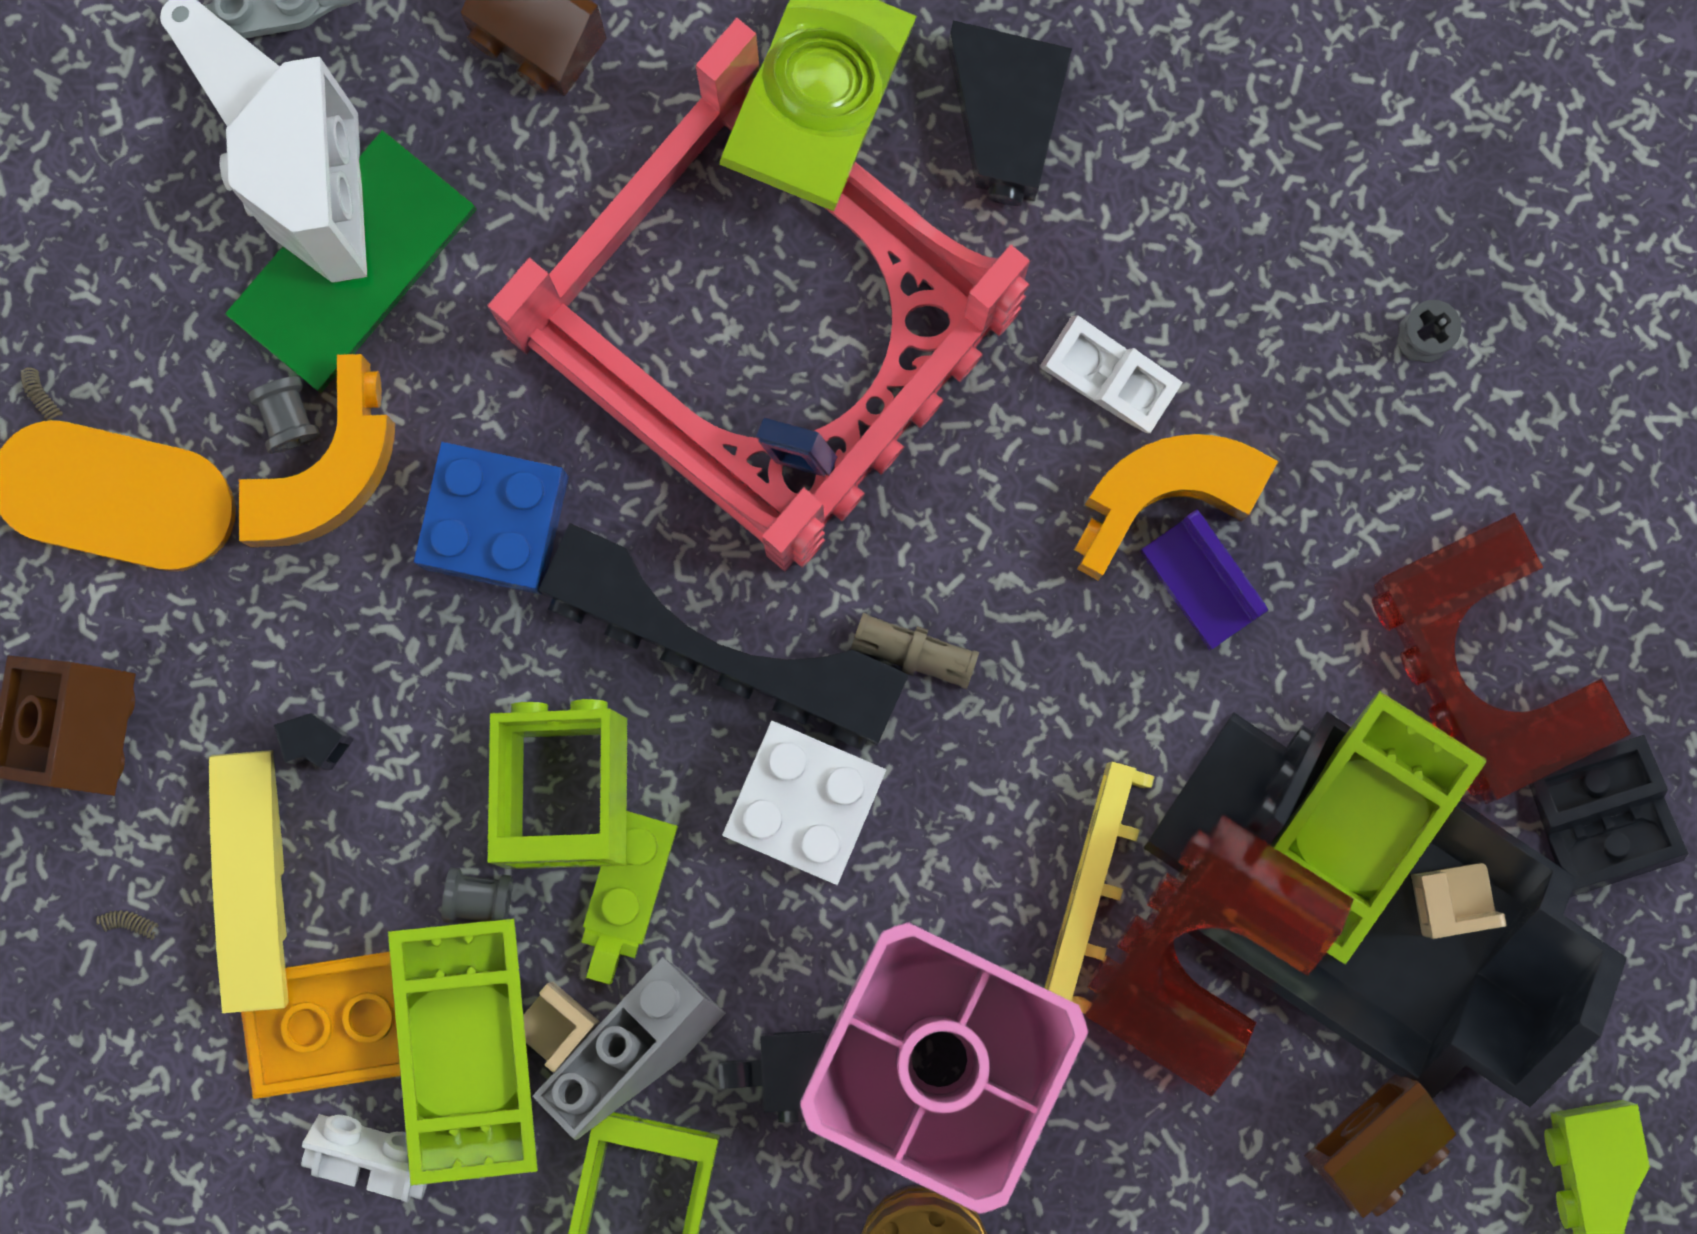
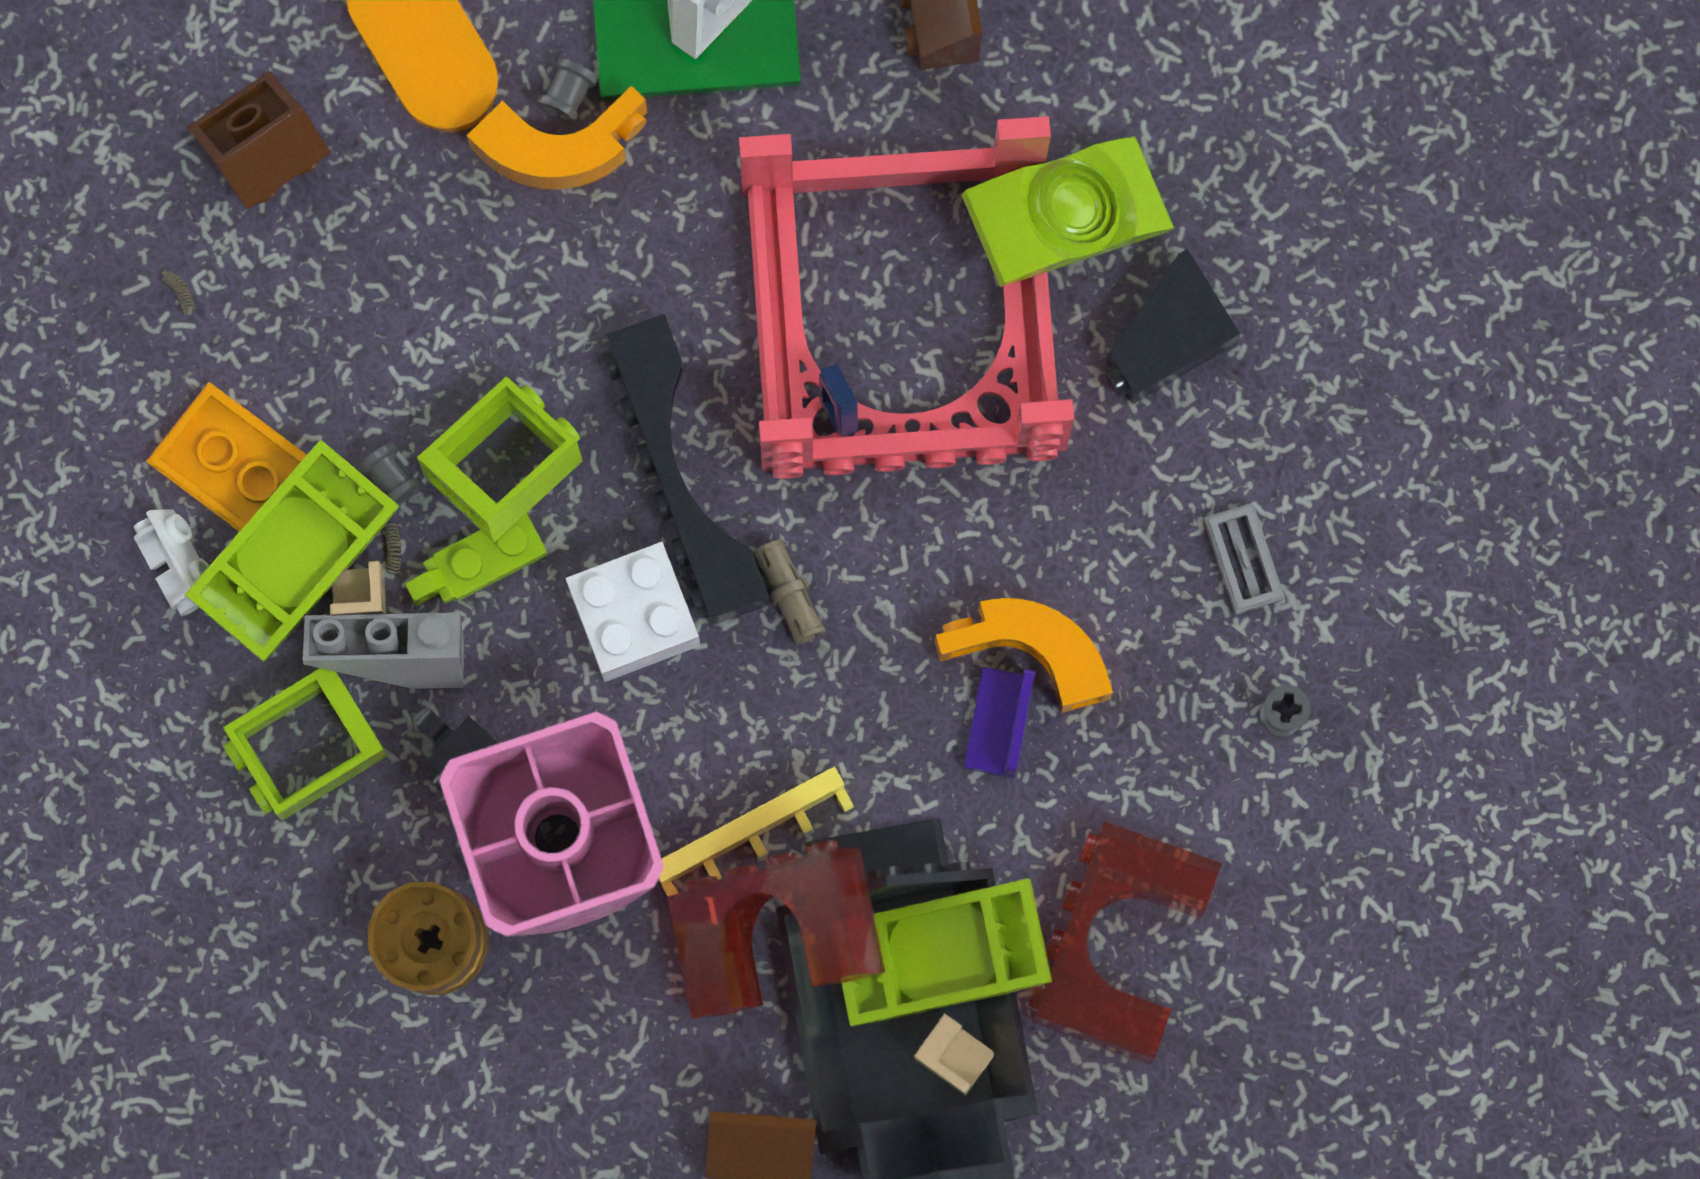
camera: 45 degrees right, 5 degrees down
(247, 881) = (271, 333): light yellow slope -> none
(312, 740) = (390, 290): black piece -> none
(491, 518) = (623, 267): blue brick -> none
(542, 956) = (393, 551): none -> dark tan leg
(1110, 374) = (1071, 549): white slope -> none
(1251, 259) = (1257, 600): none -> light grey tile
(1598, 789) = (1106, 1081): black slope -> none

